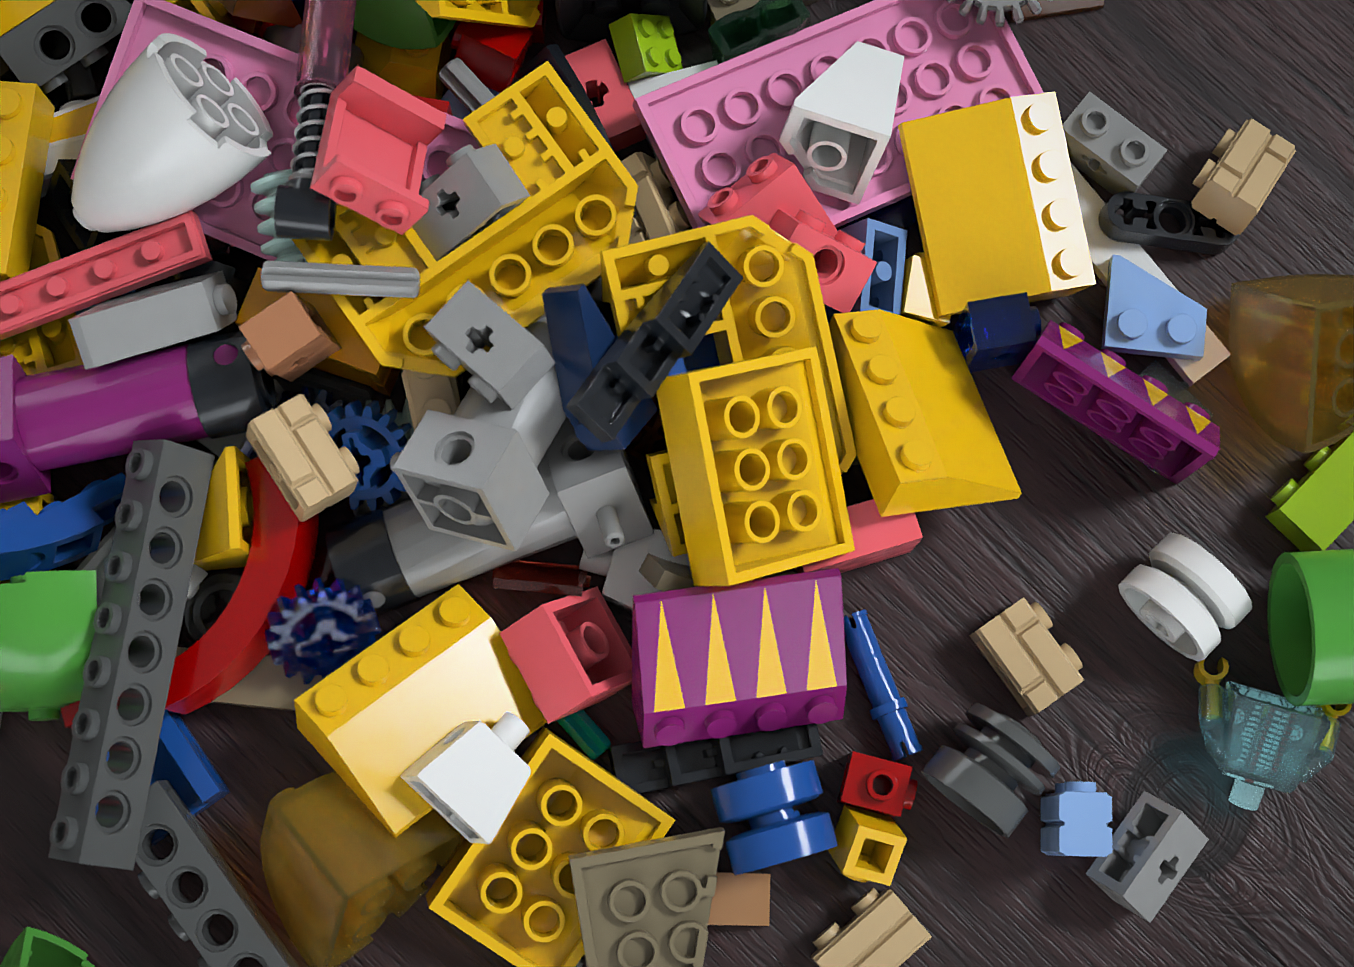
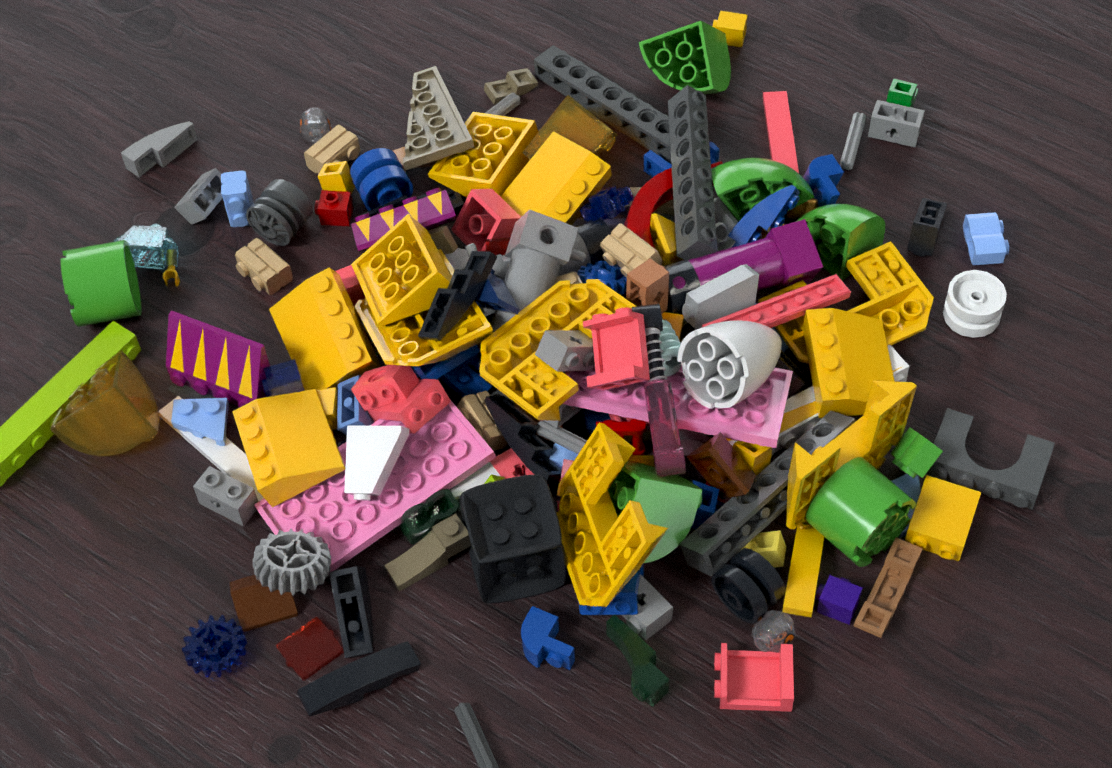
camera: 175 degrees right, 25 degrees down
(340, 279) = (626, 300): light grey axle -> none
(473, 776) = (522, 157): white torso -> none
(515, 356) = (540, 279): light grey brick -> none
(880, 687) = (332, 241): blue pin -> none
(1149, 231) = (181, 460): black beam -> none
(1185, 596) = (185, 289): white wheel -> none
(1243, 175) = (150, 489): tan brick -> none

